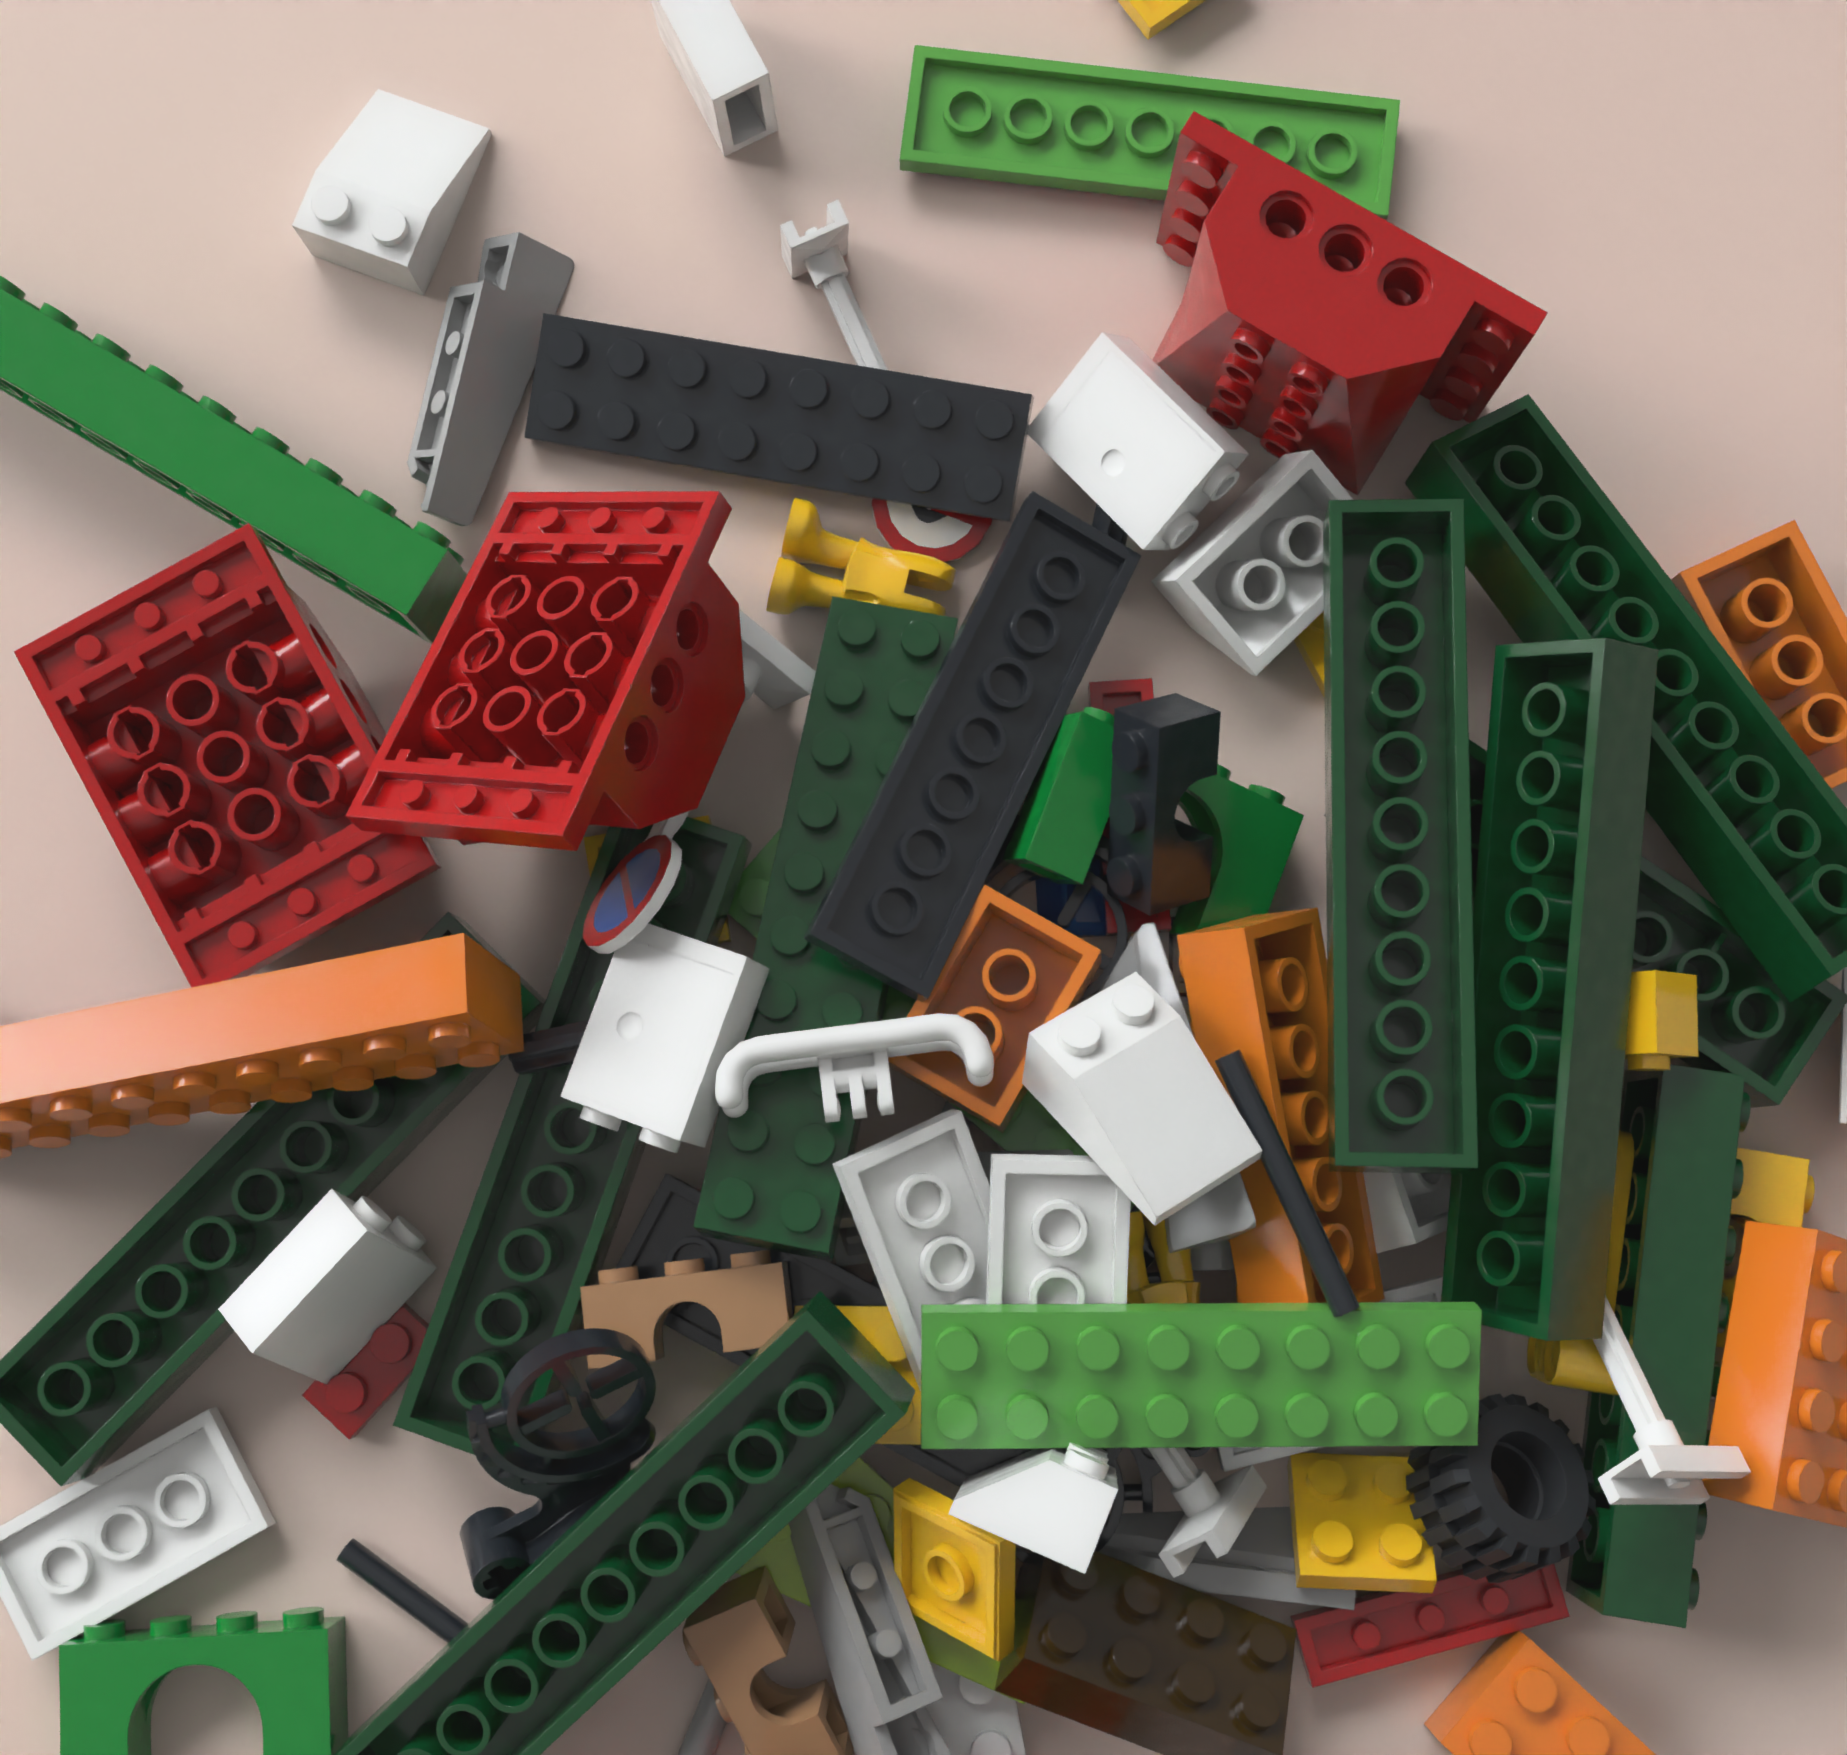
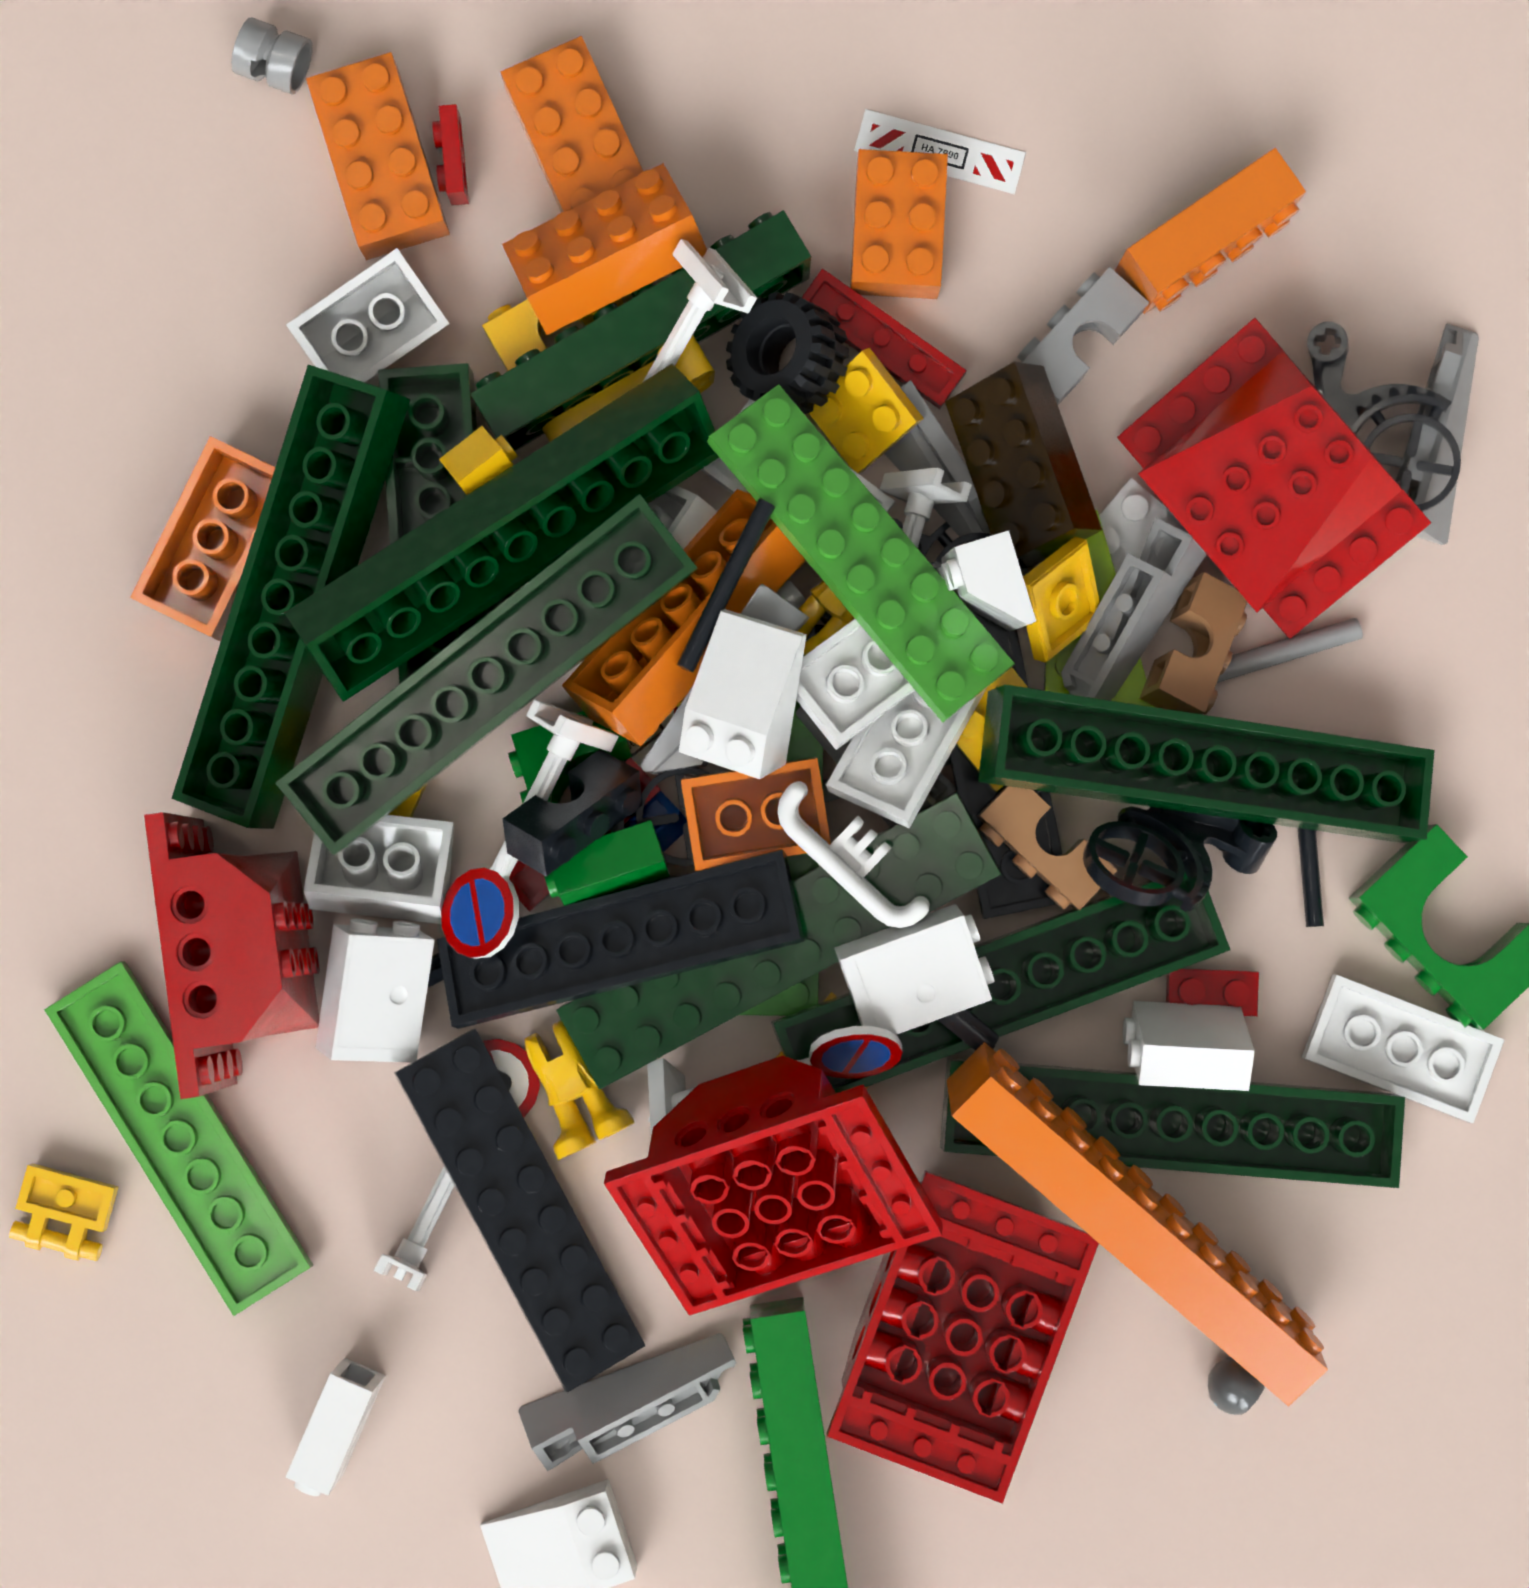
camera: 140 degrees left, 5 degrees up
(1145, 630) = (482, 903): none -> piece

